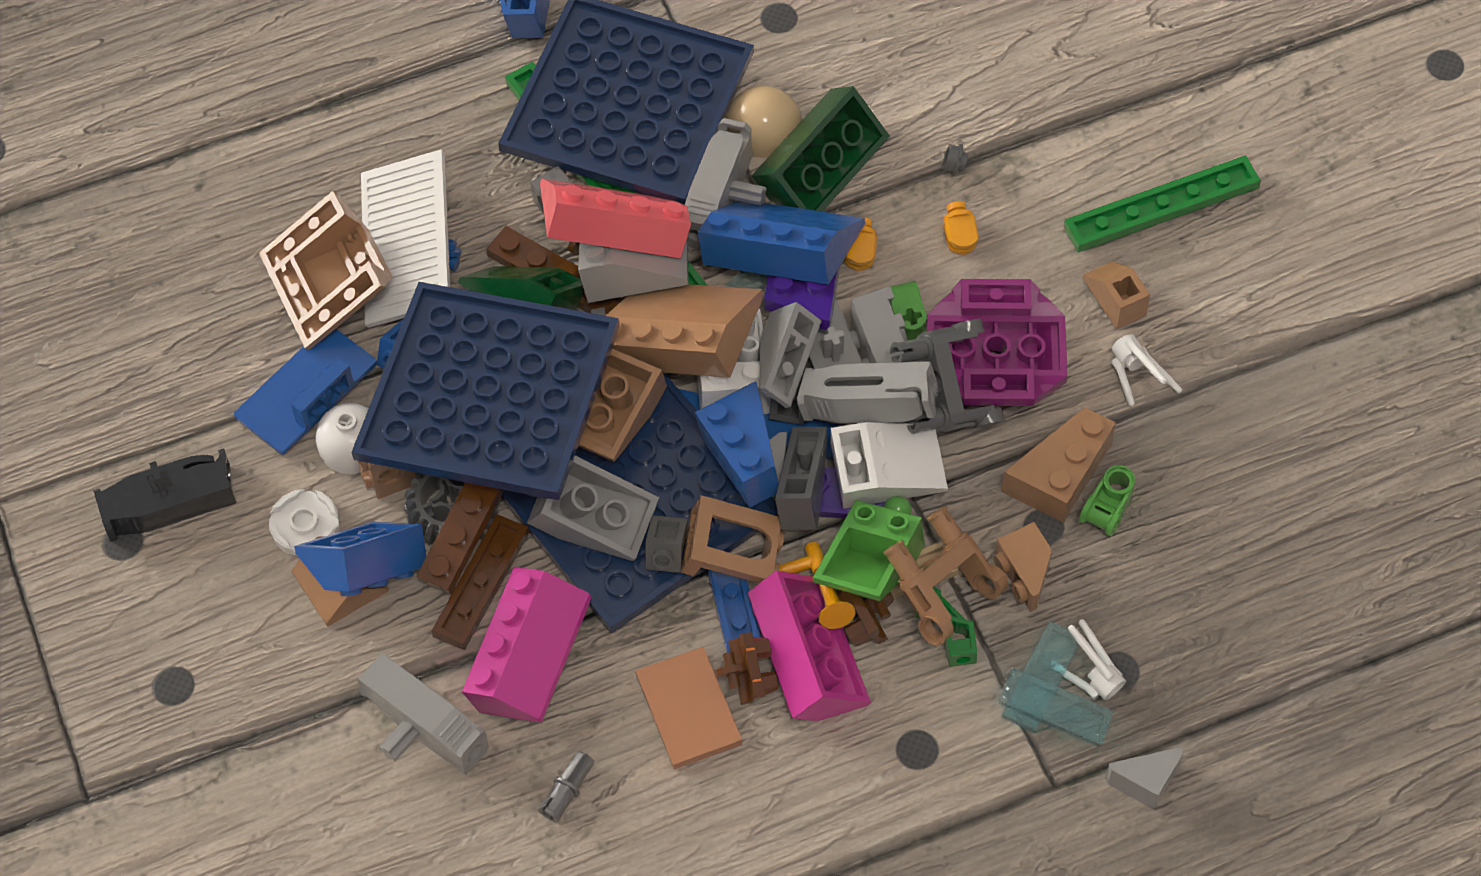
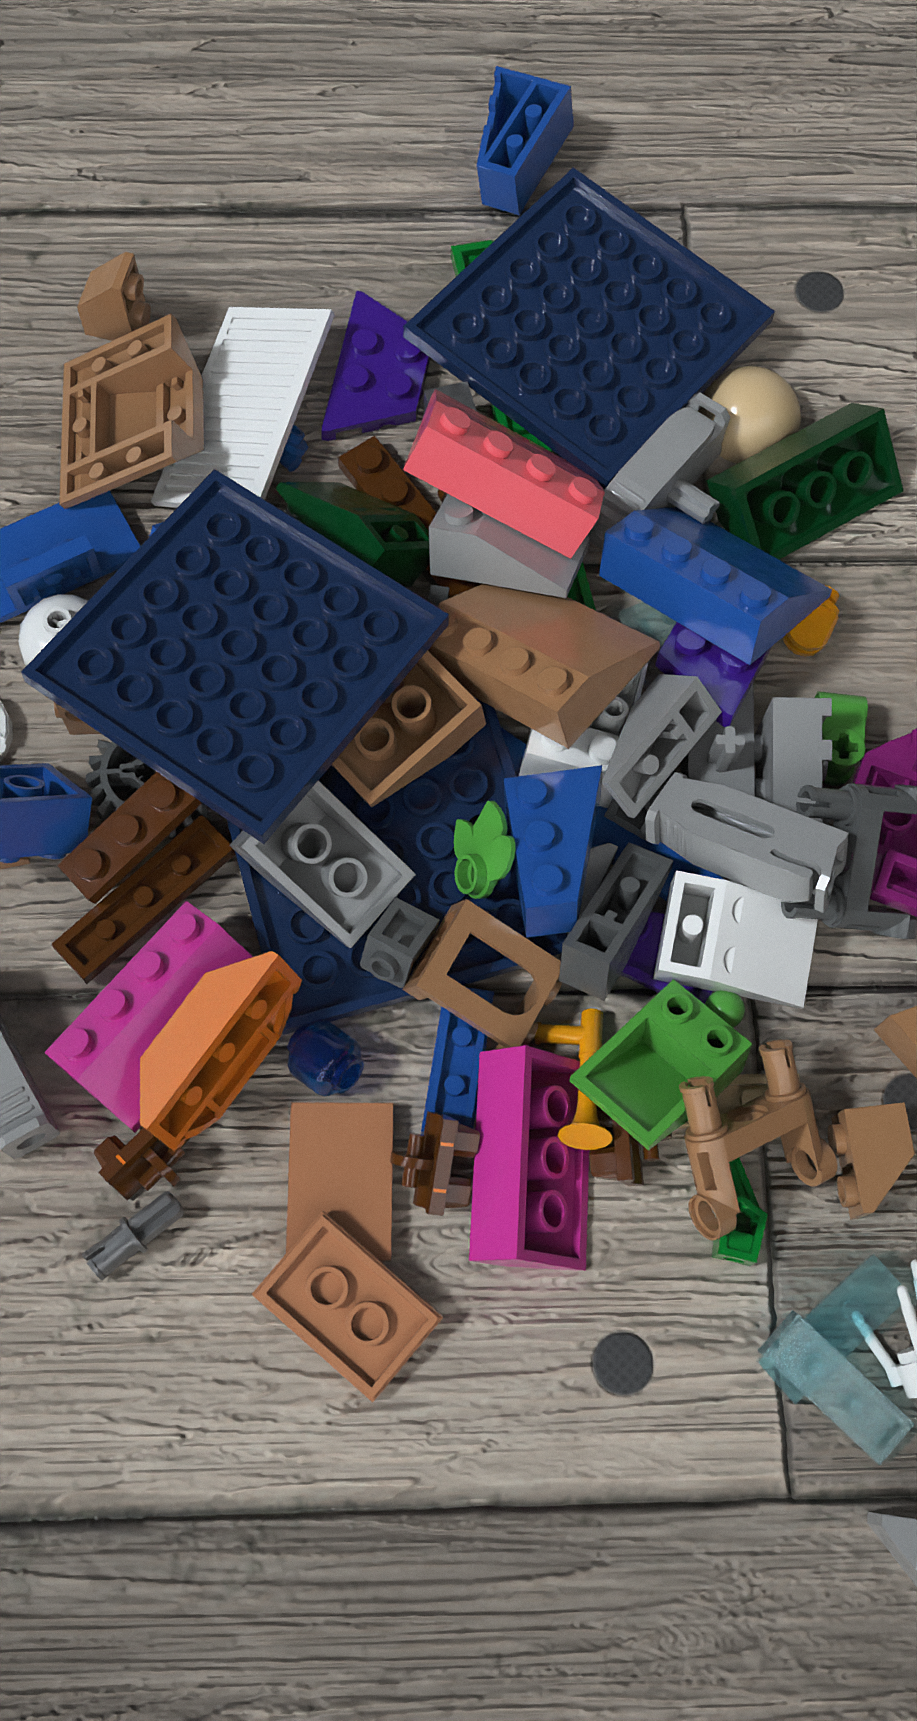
camera: 15 degrees right, 10 degrees up
(281, 196) = (114, 299): none -> medium nougat slope
(488, 181) = (377, 373): none -> dark purple wing
(555, 736) = (137, 1163): none -> reddish brown hips
(575, 639) = (213, 1046): none -> orange wedge
(646, 634) = (325, 1058): none -> clear blue head
(699, 464) = (482, 852): none -> bright green plate
(725, 775) = (347, 1306): none -> nougat tile

